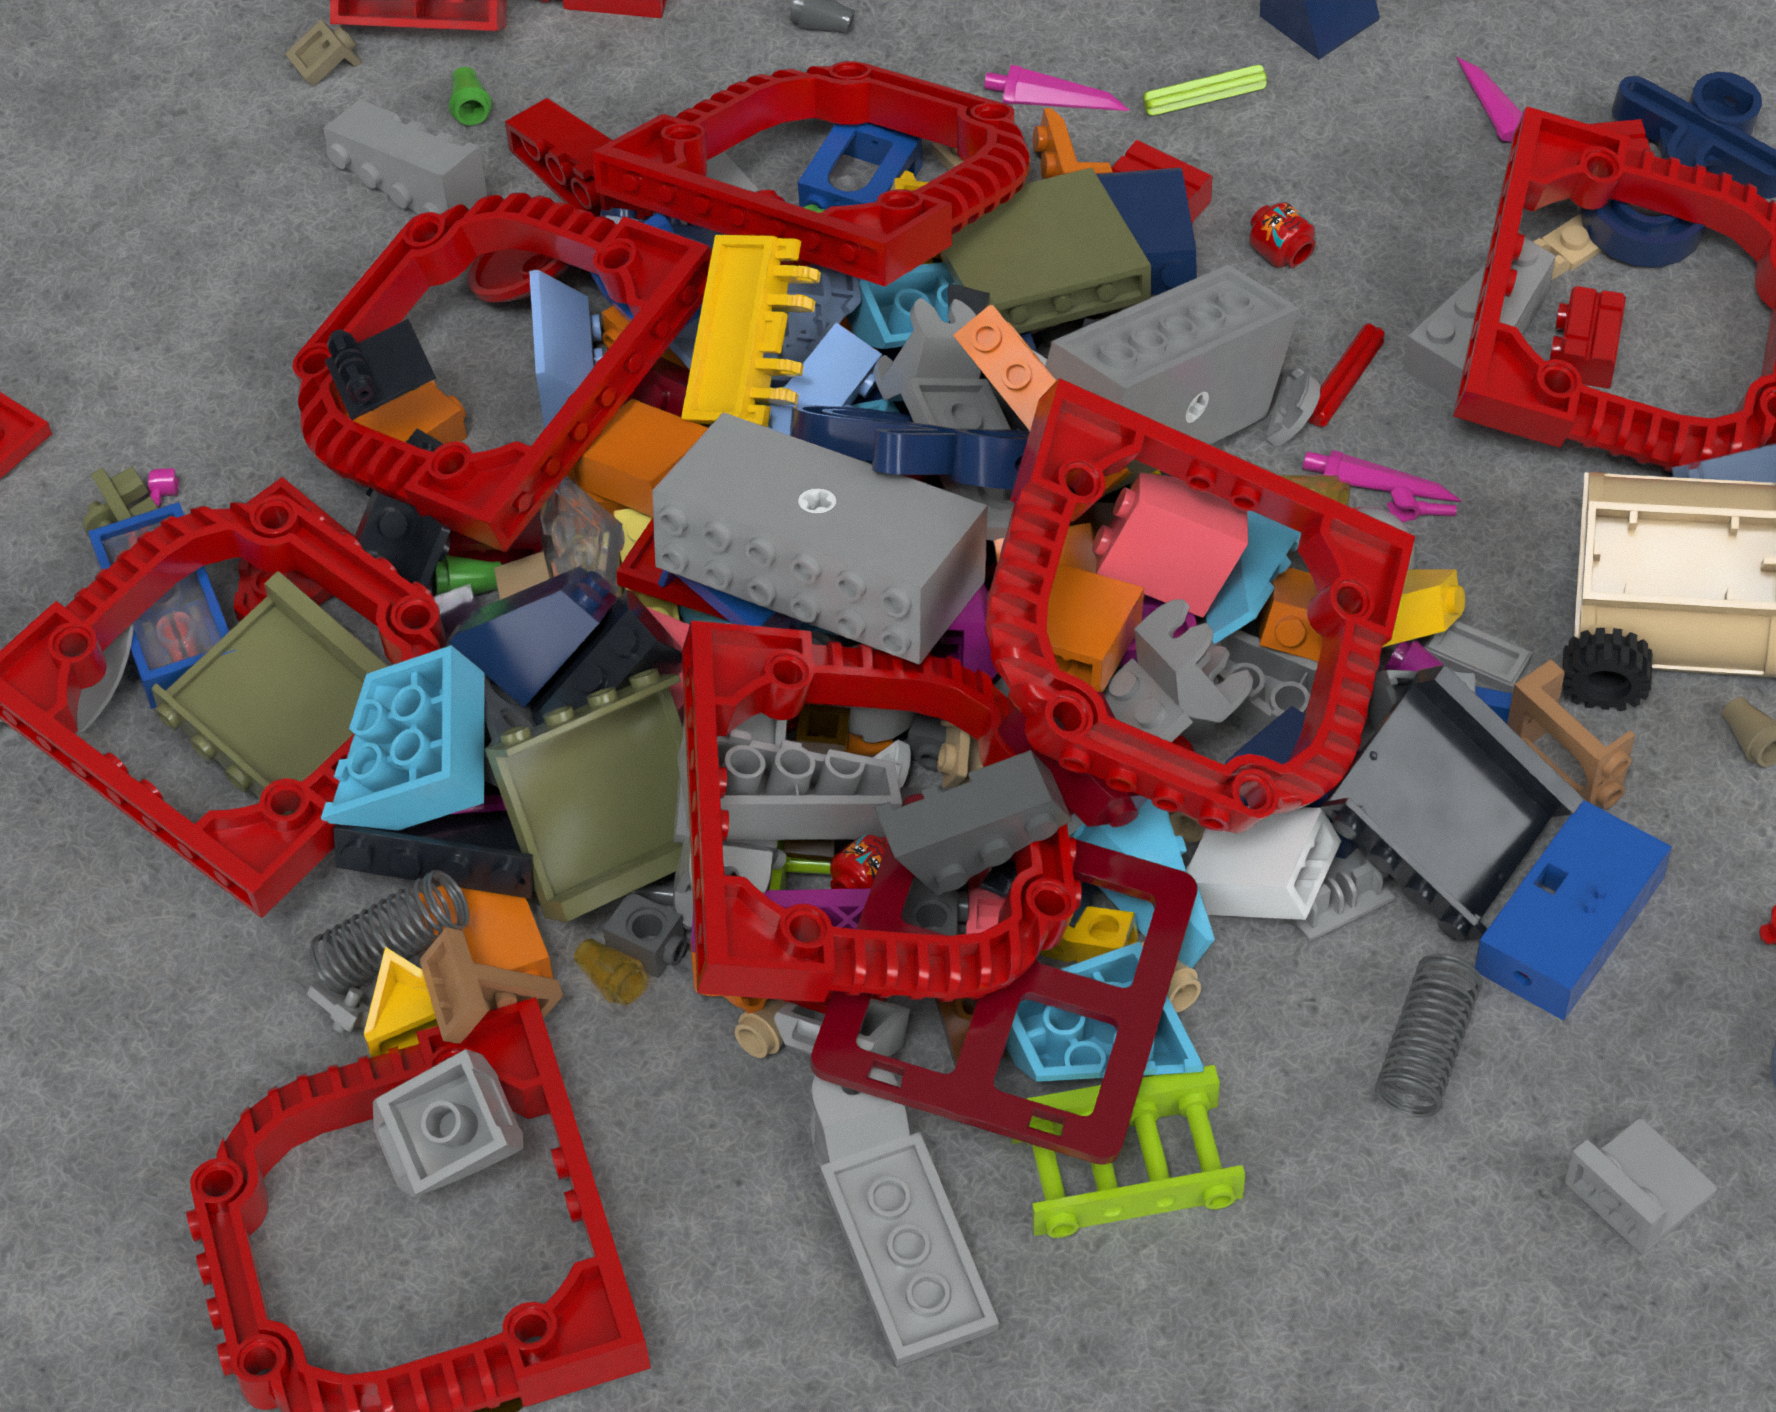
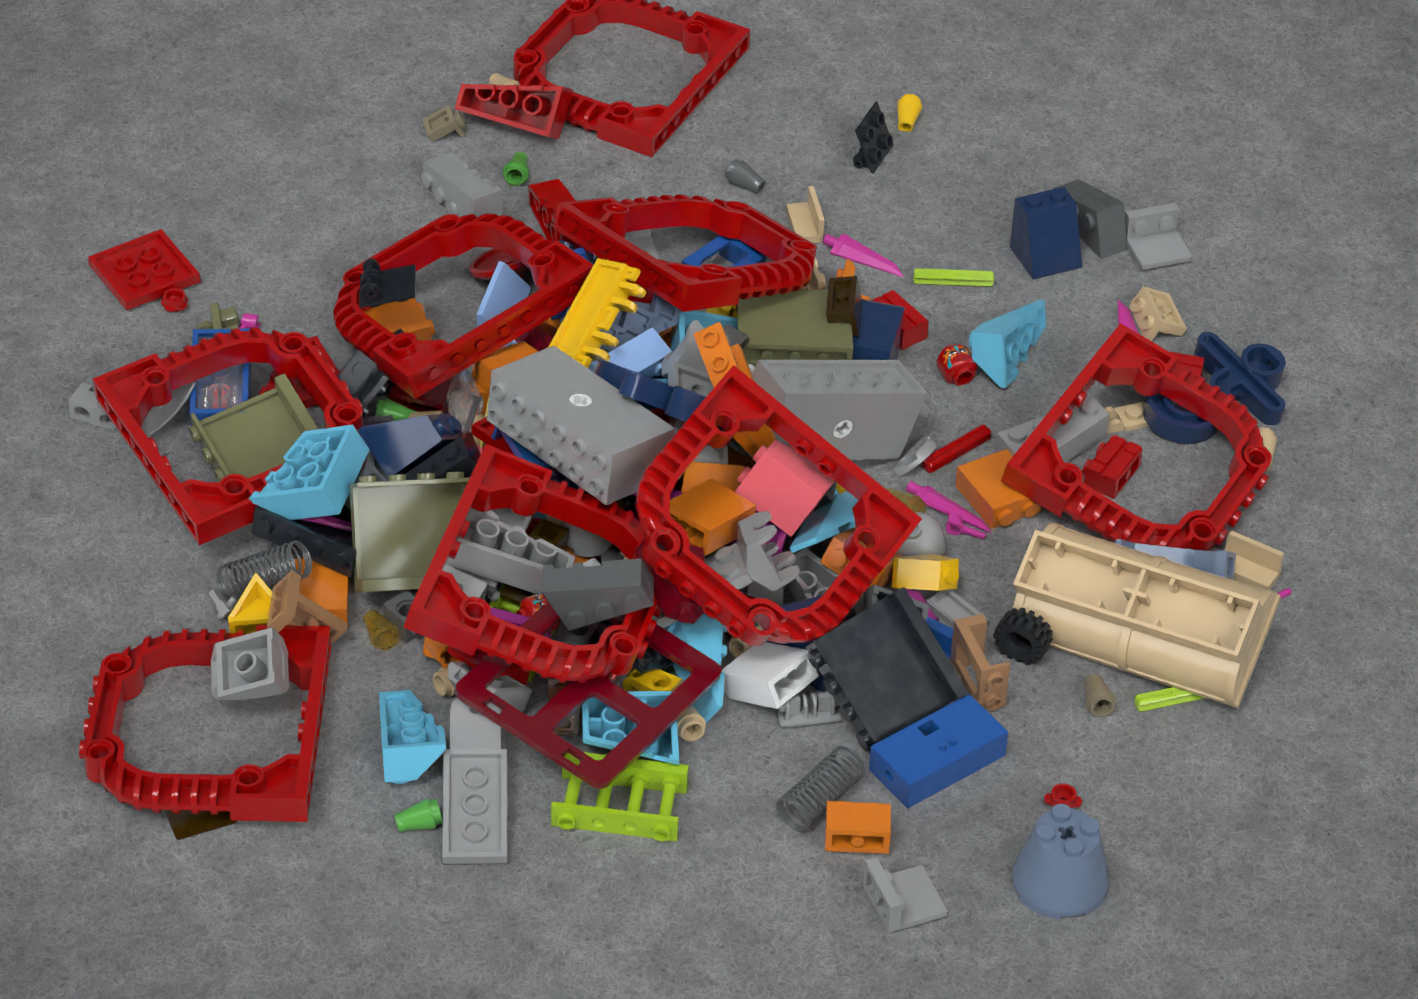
camera: 15 degrees right, 10 degrees down
(23, 471) = (174, 300): none -> red plate
(747, 1156) = (408, 737): none -> medium azure wedge
(826, 1293) = (419, 816): none -> bright green cone
(946, 53) = (807, 217): none -> tan panel
(1099, 188) = (844, 302): none -> dark brown panel
(1337, 177) = (1005, 341): none -> medium azure wedge
(1421, 429) = (992, 499): none -> orange brick
(1518, 1085) = (852, 825): none -> orange brick
(1527, 66) = (1155, 313): none -> tan bracket

